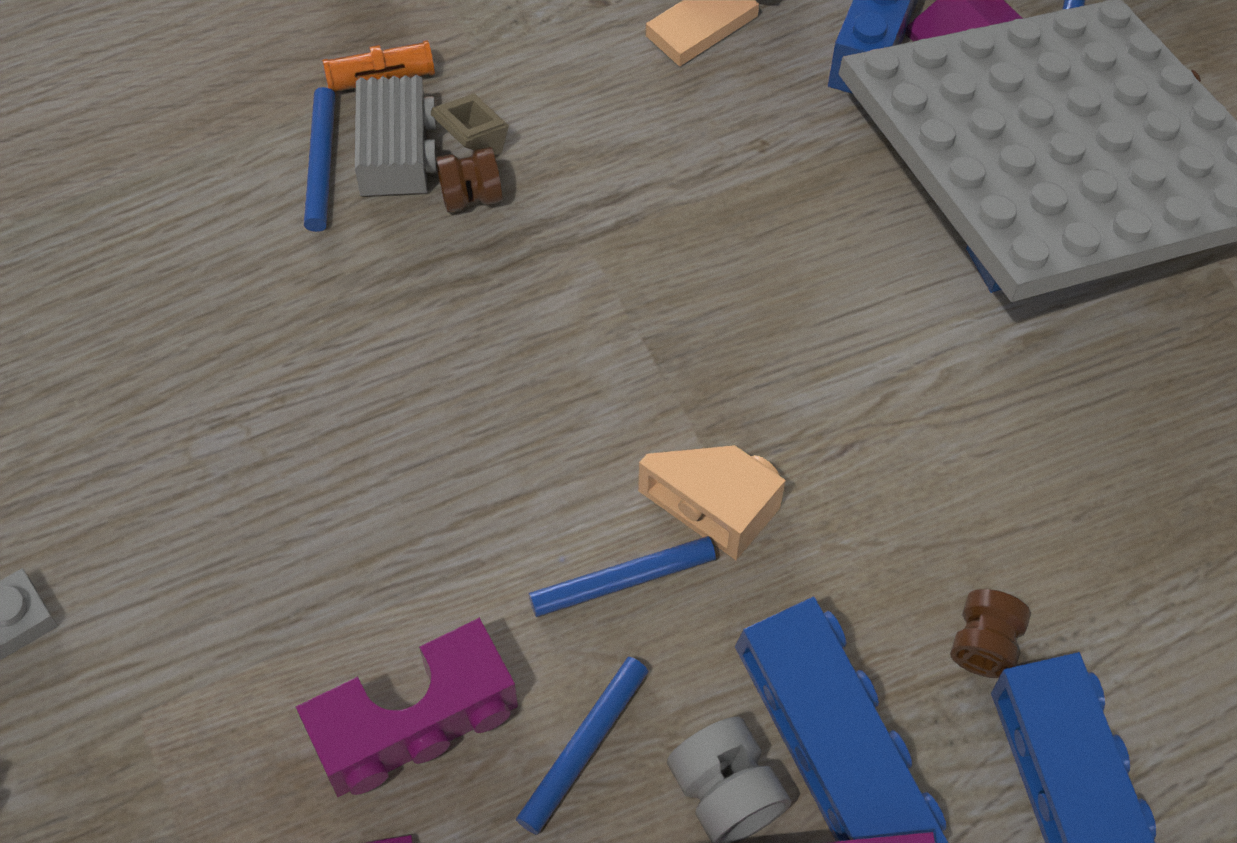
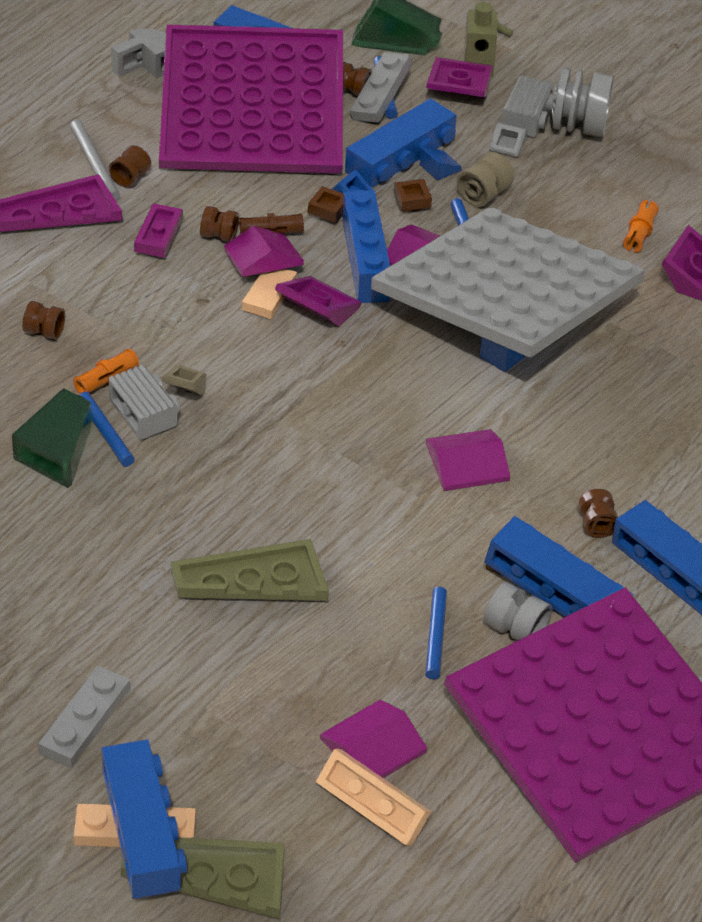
camera: 30 degrees left, 15 degrees down
(235, 146) = (55, 437): none -> clear green slope
(365, 742) = (331, 666): magenta arch -> none
(370, 507) = (263, 572): none -> olive wing
(469, 179) = (201, 408): reddish brown wheel -> none
(622, 576) = (406, 558): blue bar -> none
(715, 492) = (428, 503): light nougat slope -> none
(765, 60) = (319, 299): none -> magenta slope
(835, 430) = (468, 459): none -> magenta slope

